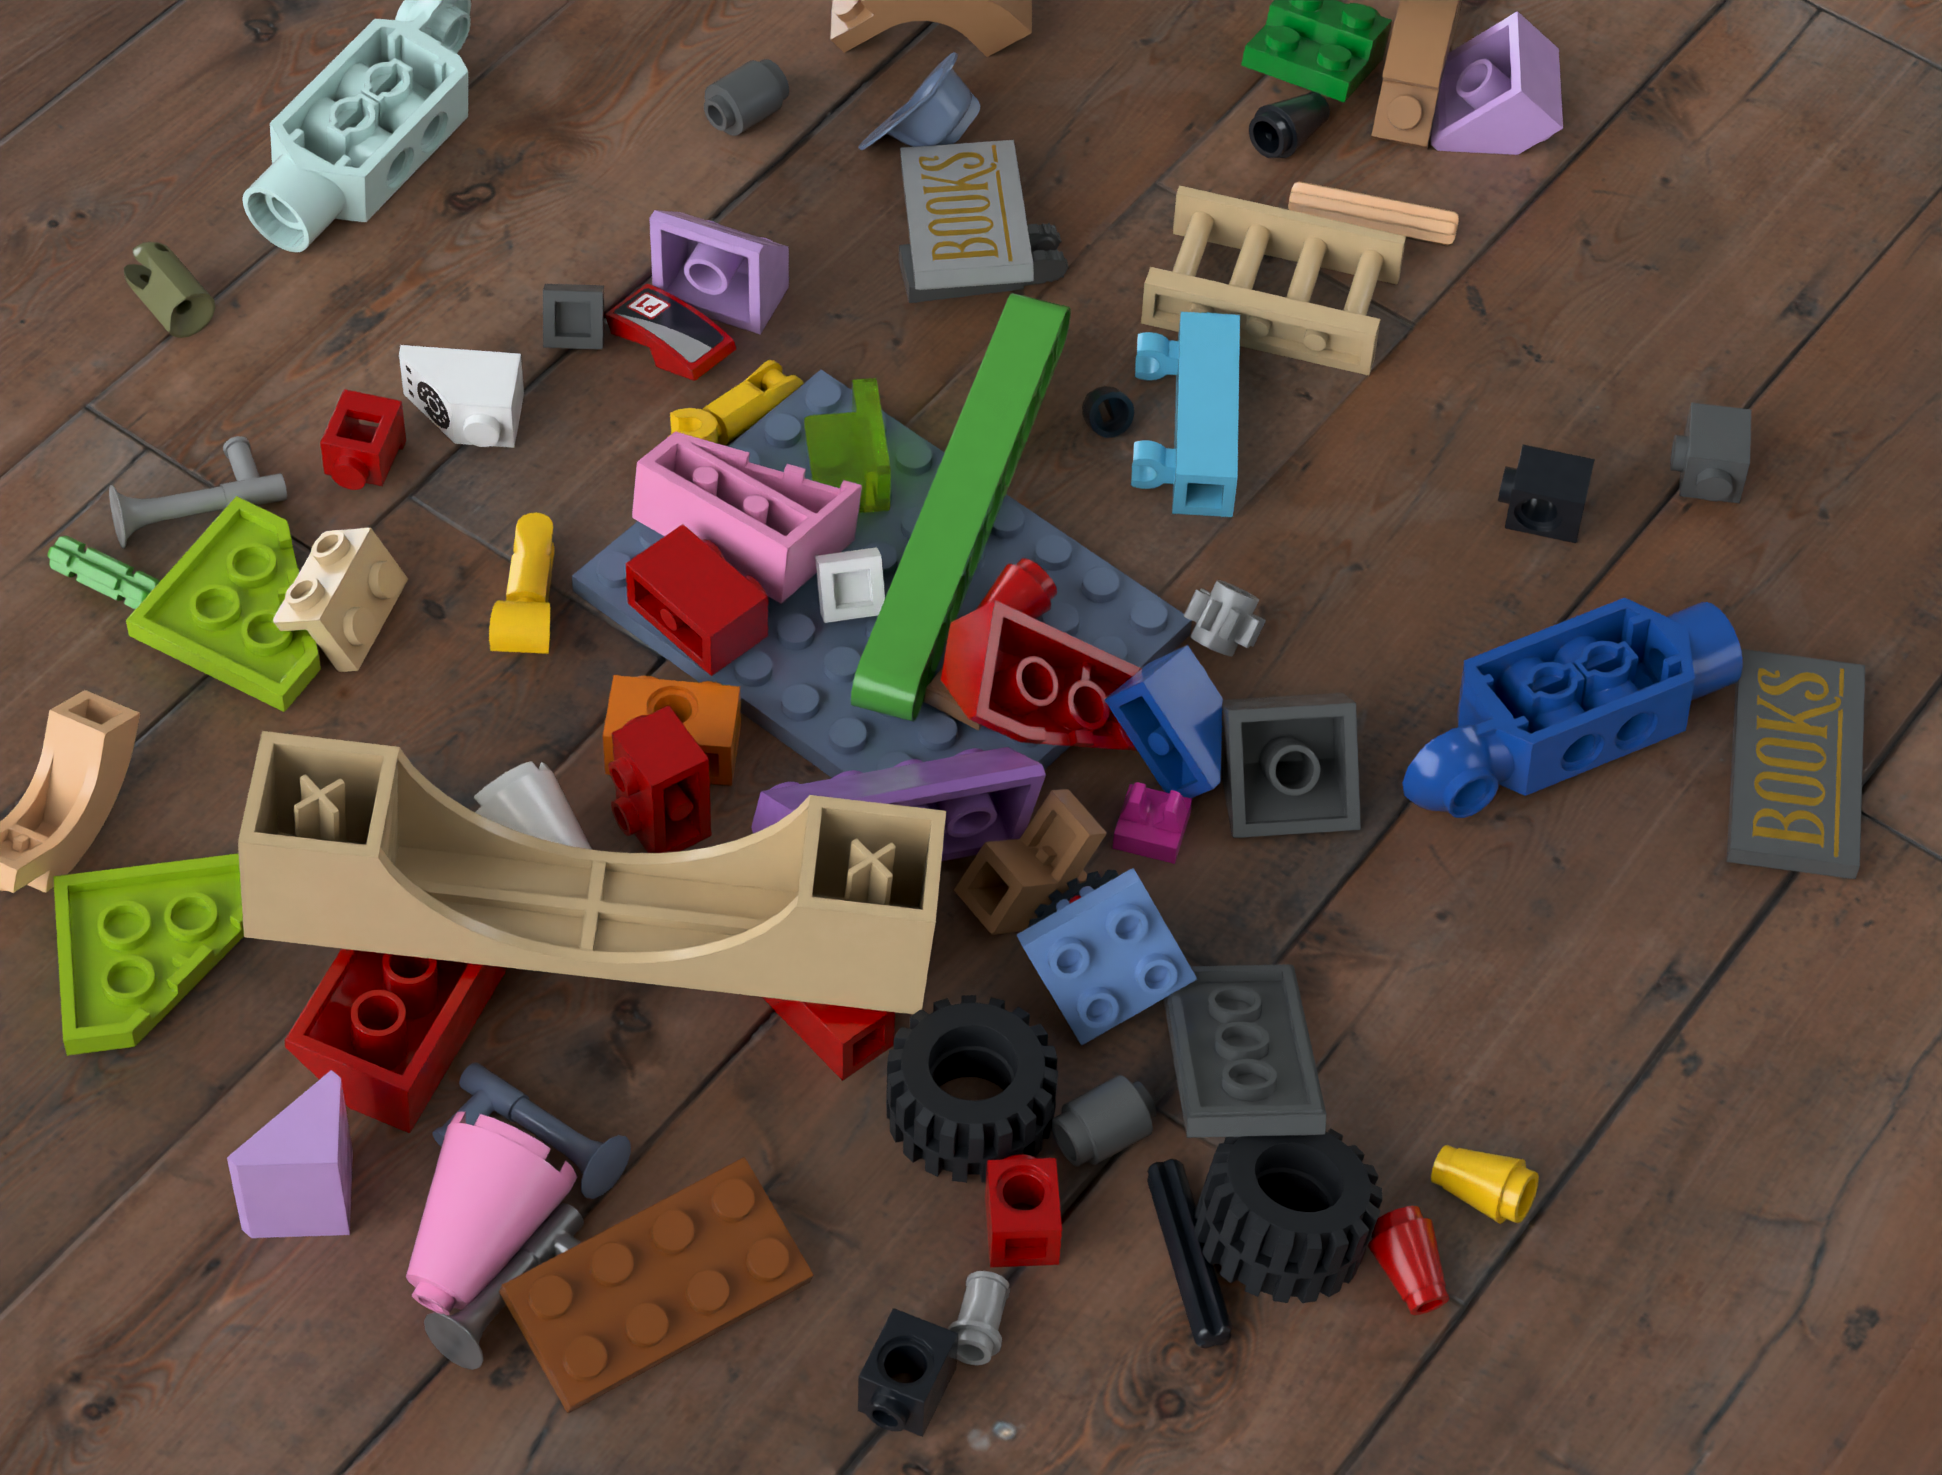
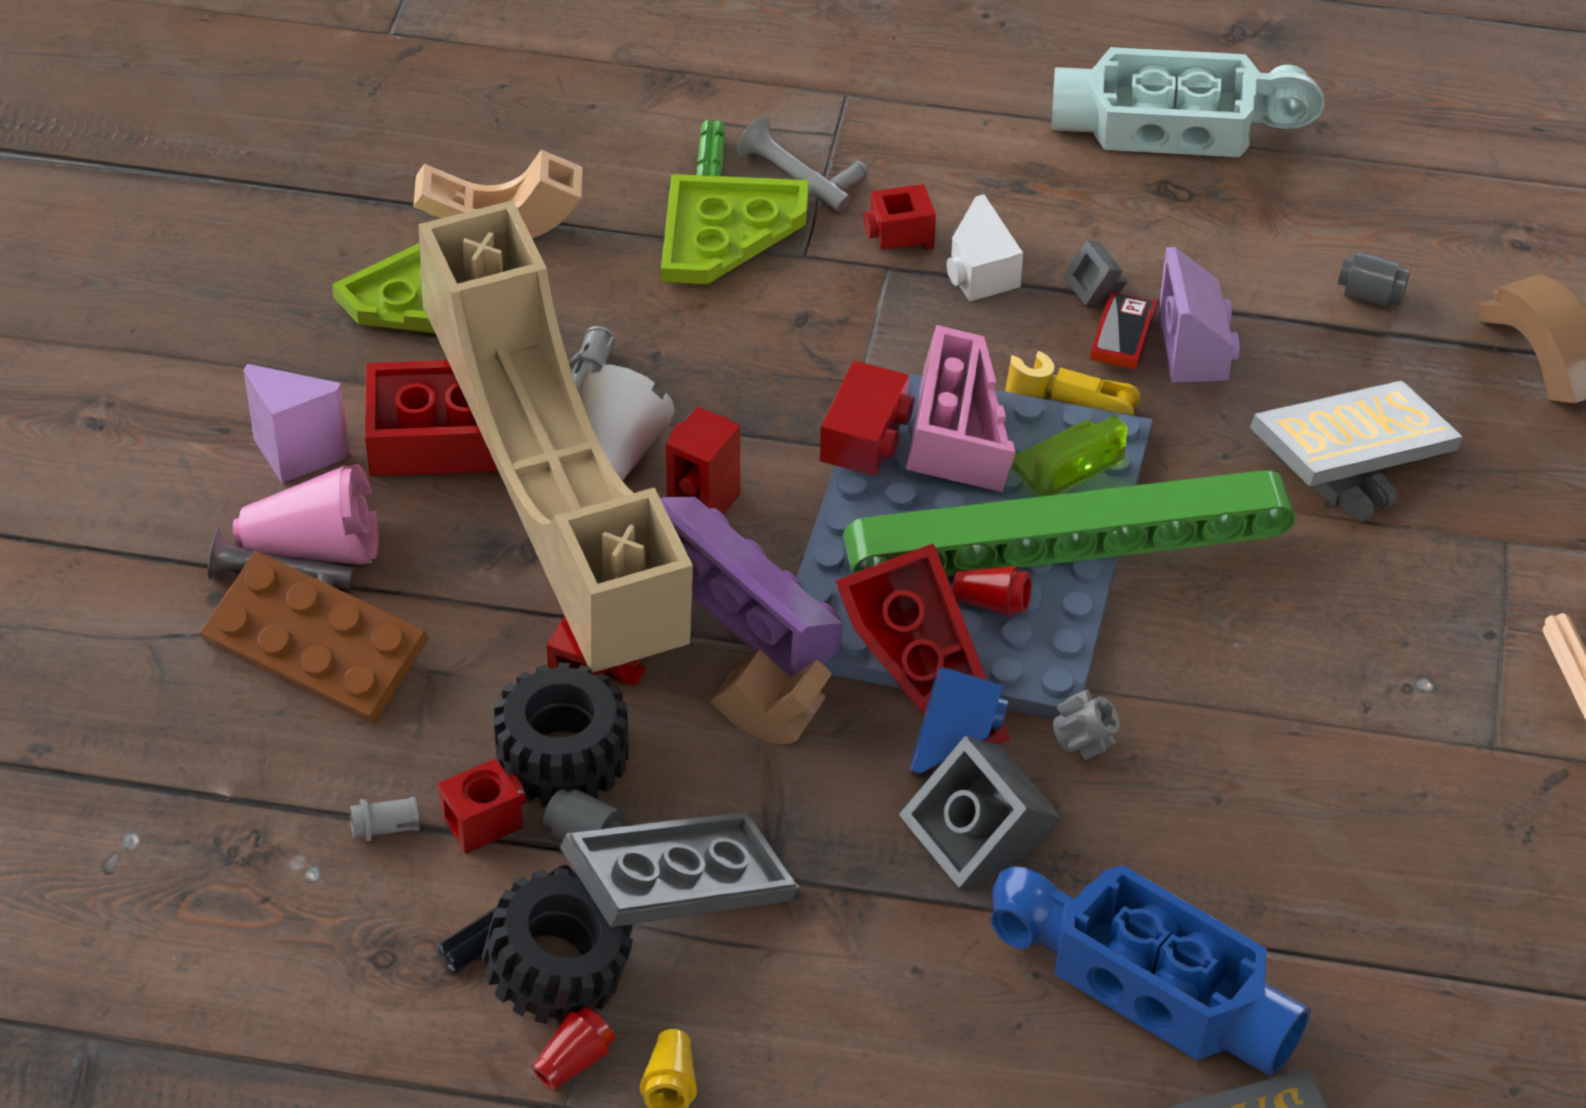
camera: 65 degrees right, 5 degrees down
(169, 290) = (961, 82): olive piece -> none
(343, 595) = (762, 262): tan bracket -> none
(524, 617) = (805, 358): yellow piece -> none
(598, 1161) = (390, 570): sand blue piece -> none
(705, 708) = (774, 468): orange brick -> none
(850, 584) = (943, 488): white tile -> none
(913, 1348) = (312, 792): black brick -> none
(935, 113) = (1444, 380): sand blue piece -> none
(1104, 952) = (713, 752): medium blue plate -> none
(1118, 407) = (1234, 586): black hinge -> none
(1152, 823) = (877, 759): dark pink tile -> none
(1206, 414) = (1280, 643): medium azure brick -> none
(1269, 321) = (1415, 663): tan fence -> none
(1546, 493) = (1369, 884): black brick -> none
(1713, 453) = (1500, 980): dark grey brick -> none

